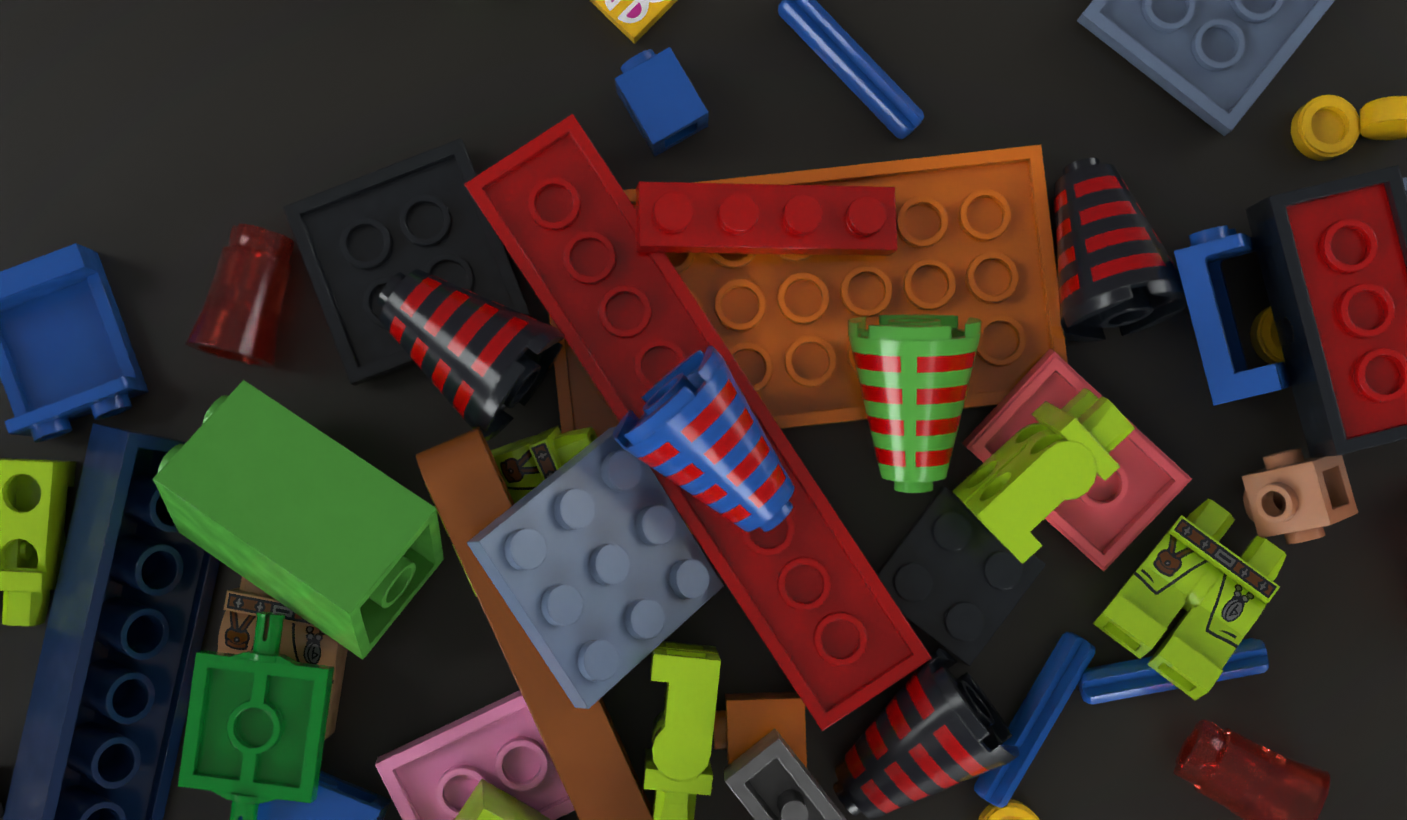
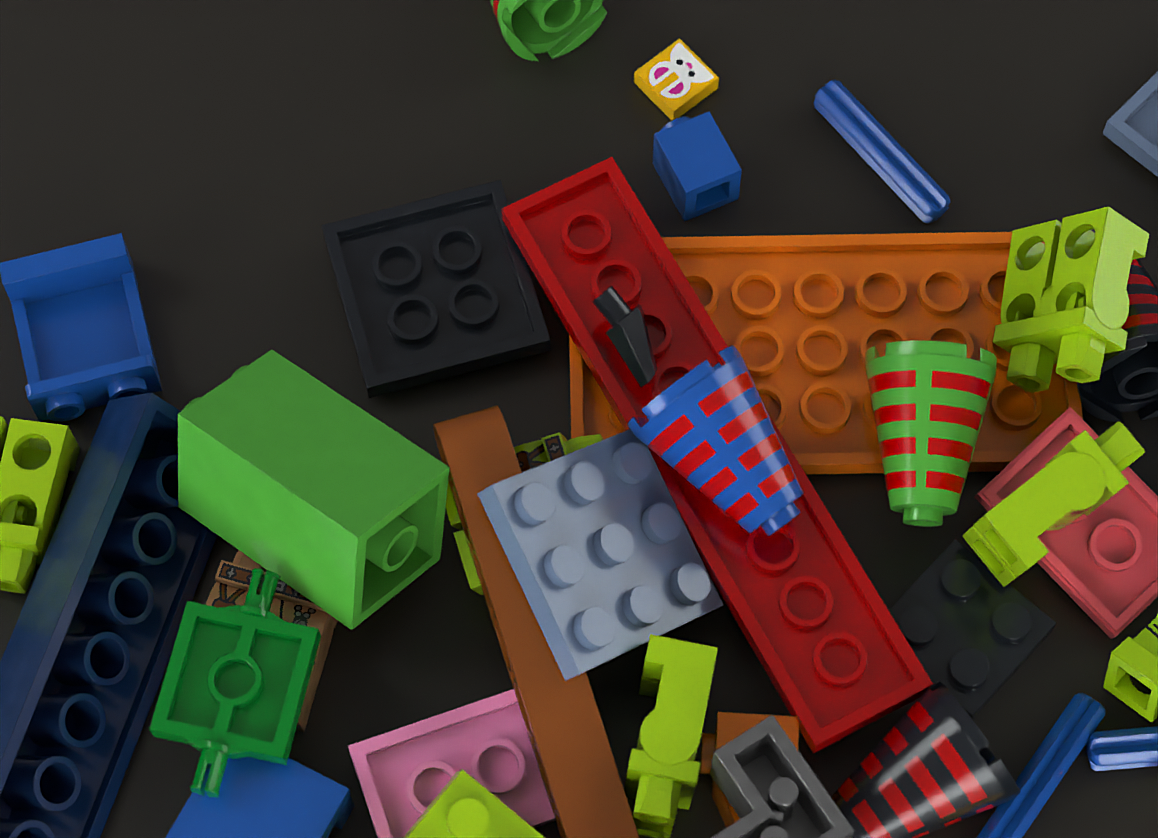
camera: 10 degrees right, 20 degrees down
(245, 298) = (272, 301): clear red plant -> none
(469, 346) = (495, 348): black cone -> none
(606, 321) = (628, 334): none -> black bar
(765, 219) = (791, 264): red plate -> none
(1049, 243) = (1067, 296): none -> lime hips

